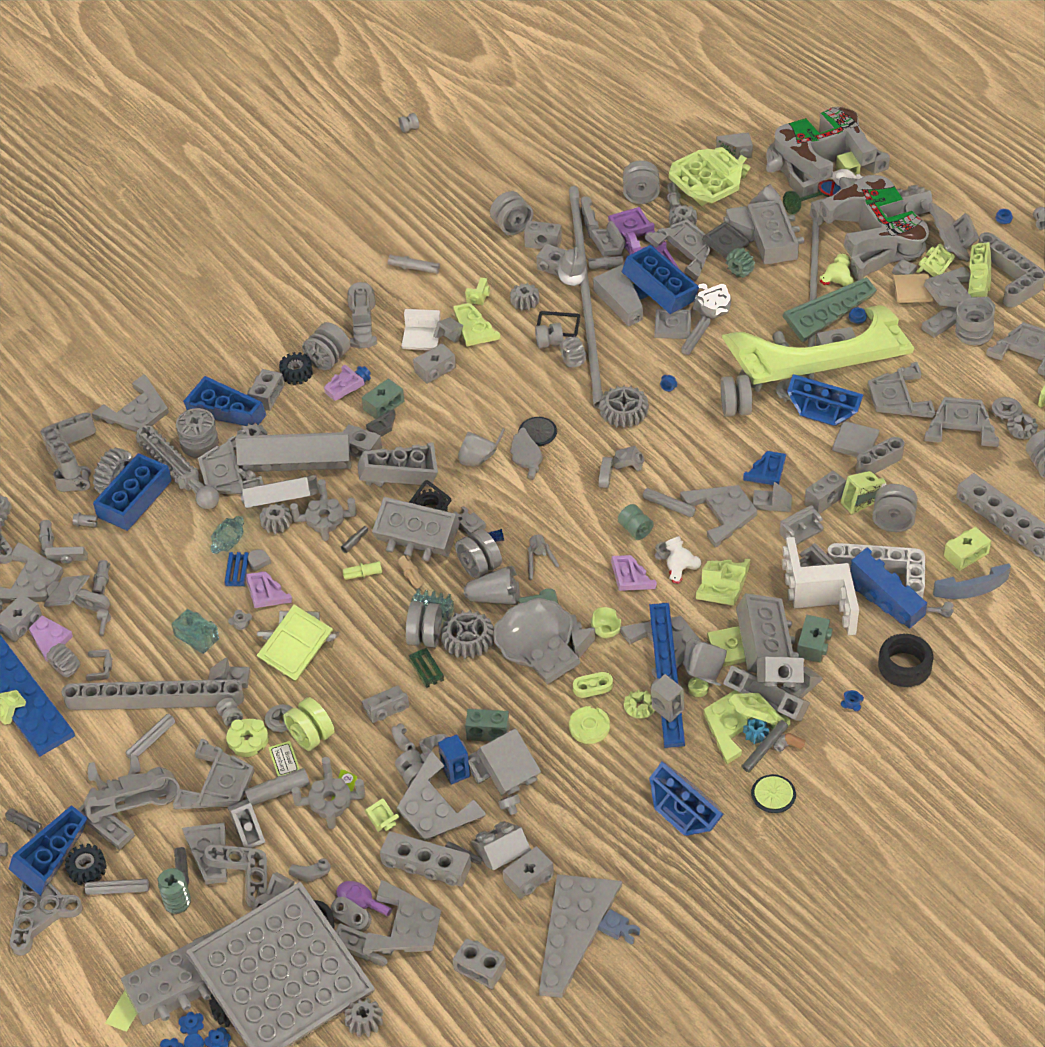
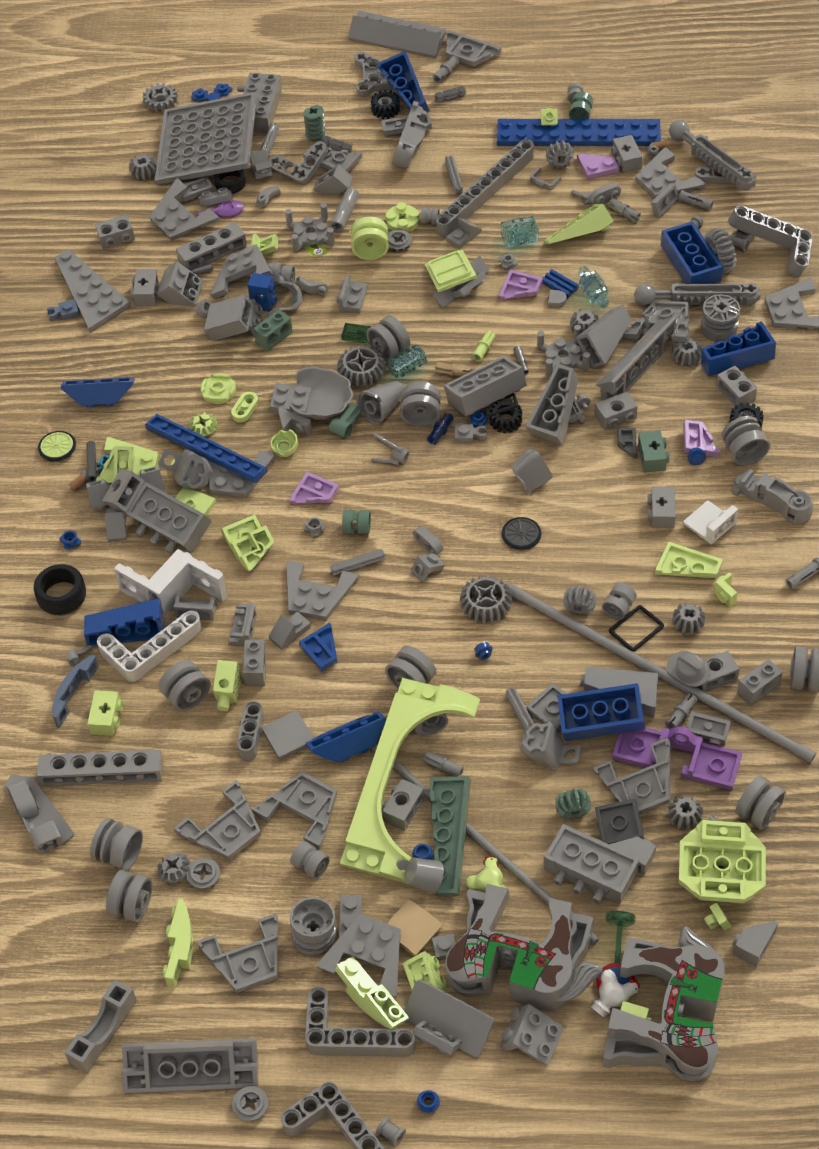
camera: 130 degrees right, 5 degrees up
(64, 591) = (628, 185): light grey piece -> none
(93, 775) = (428, 149): light grey helmet -> none
(117, 886) = (354, 112): light grey axle -> none
(148, 593) = (589, 221): none -> yellowish green wedge
(224, 783) = (378, 191): light grey wing -> none
(449, 329) = (691, 534): light grey panel -> none
(526, 452) = (502, 508): light grey animal -> none
(588, 215) = (757, 738): light grey hinge -> none
(667, 697) = (174, 416): light grey brick -> none
(680, 559) = (293, 525): white animal -> none
(766, 194) = (643, 895): light grey piece -> none
(813, 638) = (139, 553): sand green brick -> none
(874, 294) = (422, 873): none -> light grey hat
(932, 358) = (310, 860): none -> light grey wheel

